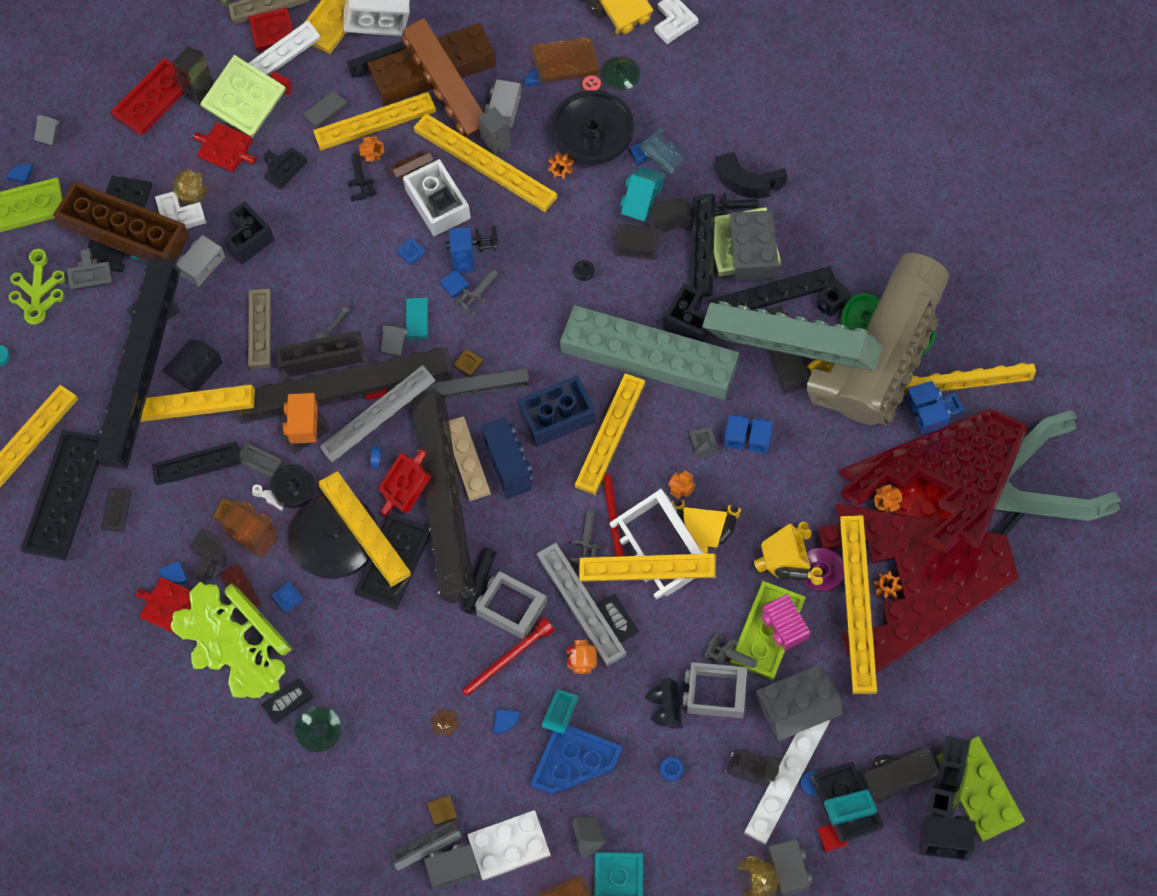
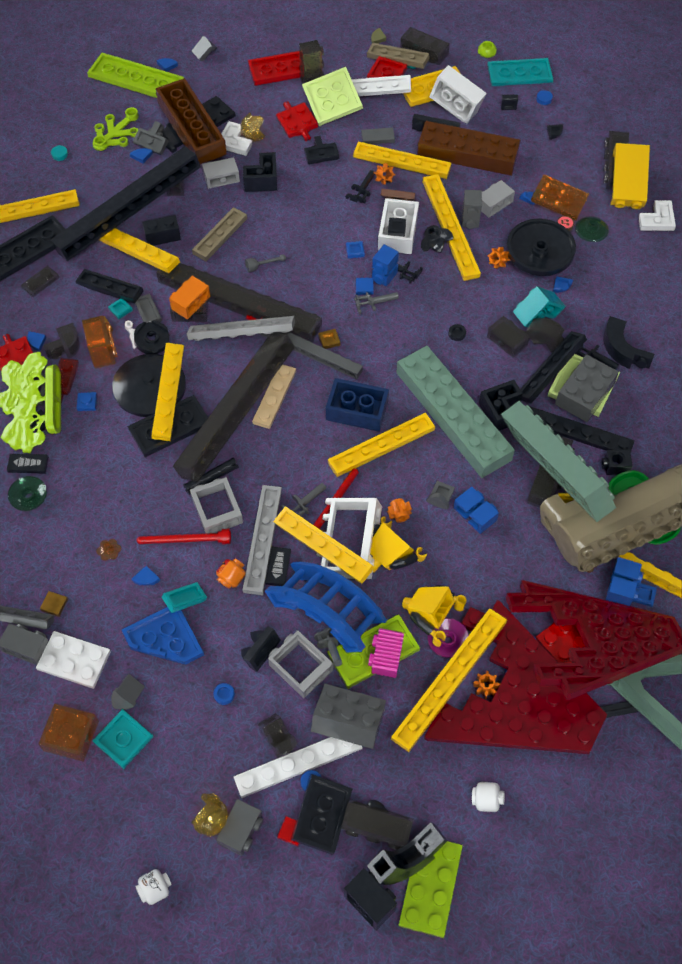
camera: 35 degrees right, 5 degrees down
(91, 297) = (141, 154): none -> blue tile
(229, 479) = (120, 308): none -> teal tile
(284, 81) = (365, 103): red tile -> none
(320, 354) = (240, 271): clear smoke brick -> none
(375, 457) = (217, 354): blue tile -> none
(394, 339) = (294, 292): dark grey tile -> none
(404, 482) = (218, 380): red plate -> none
(417, 318) = (322, 291): teal tile -> none
(444, 77) = (465, 153): dark orange brick -> none
(484, 186) = (435, 240): none -> black plate
(507, 457) = (296, 410): dark blue brick -> none
(662, 151) = (576, 291): clear light blue wing -> none
(698, 630) = (318, 610): none -> blue fence
(850, 807) = (319, 818): teal tile -> none
(888, 498) = (538, 623): orange gear -> none
(966, 680) = (487, 796): none -> white head

